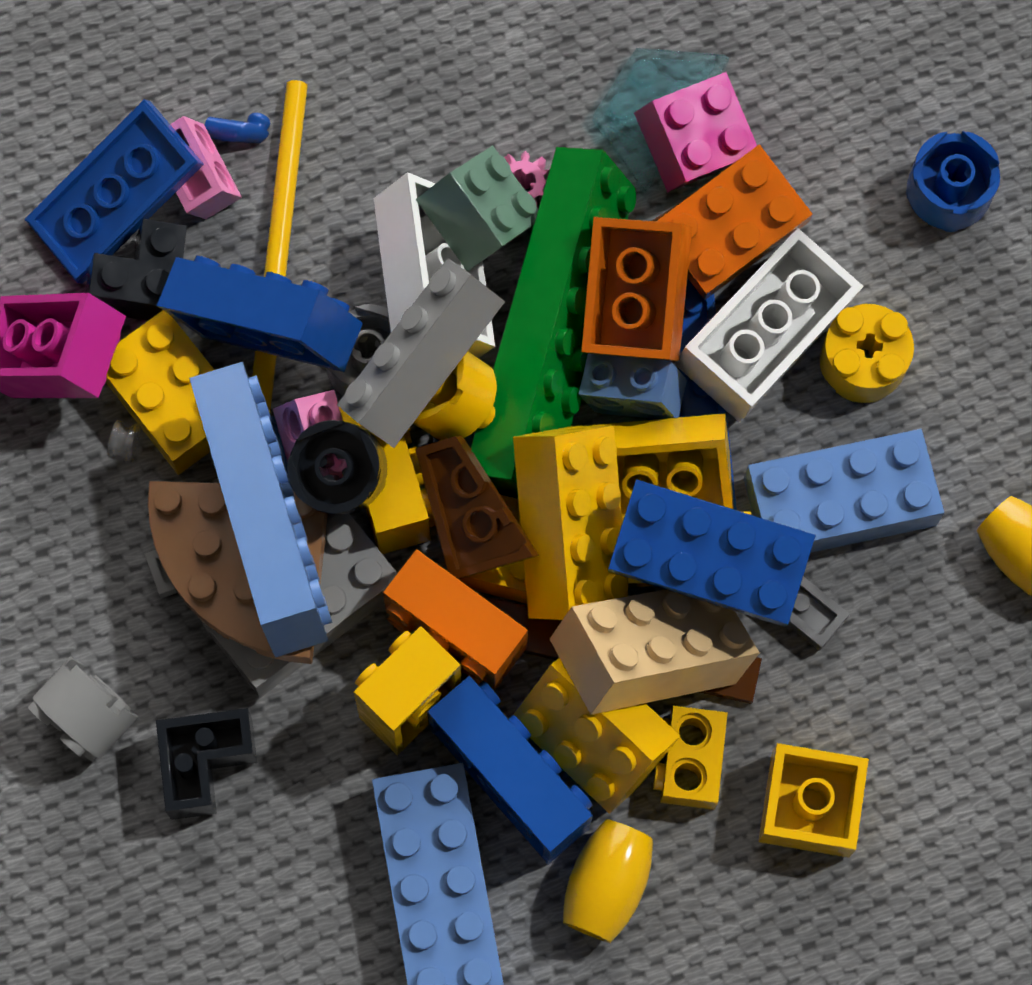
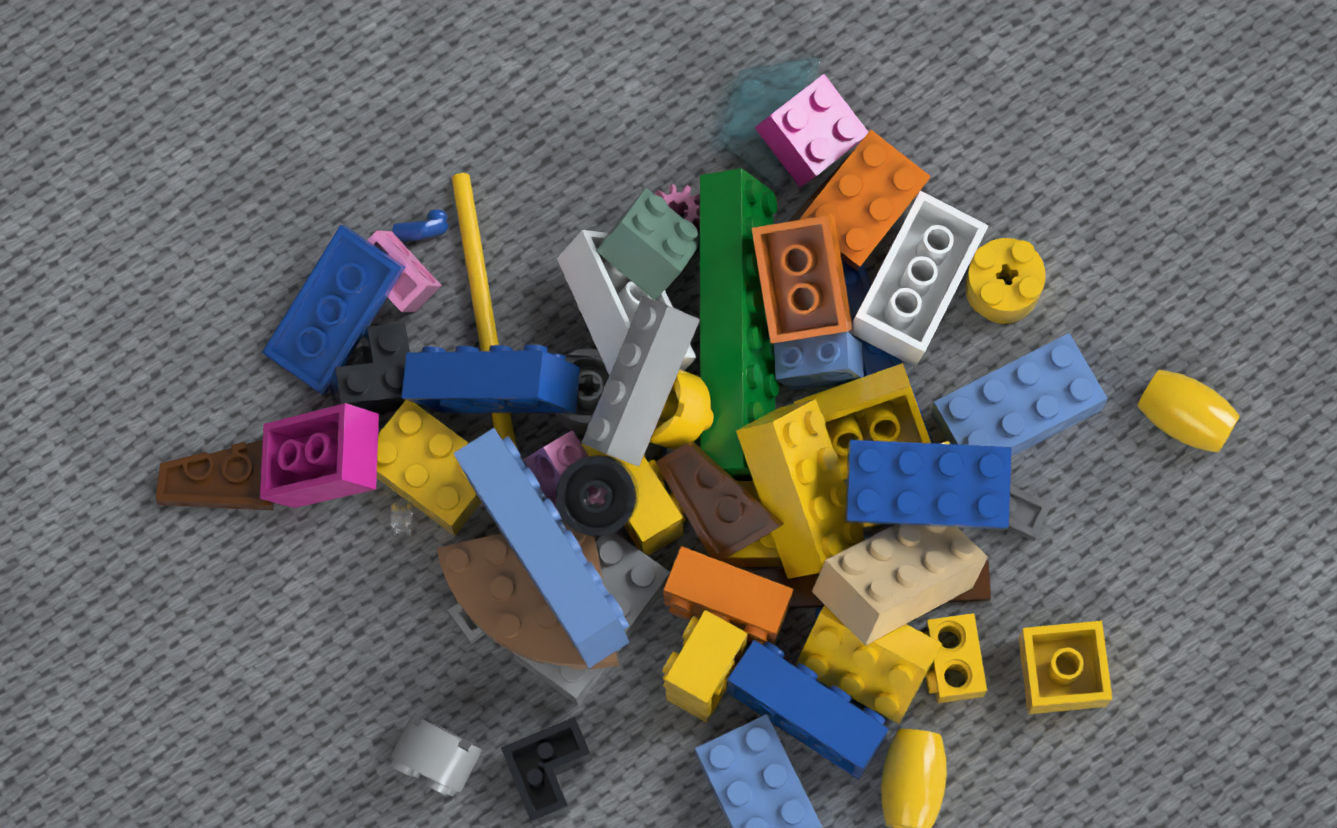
camera: 10 degrees left, 0 degrees up
(931, 184) = (1034, 135): blue brick -> none

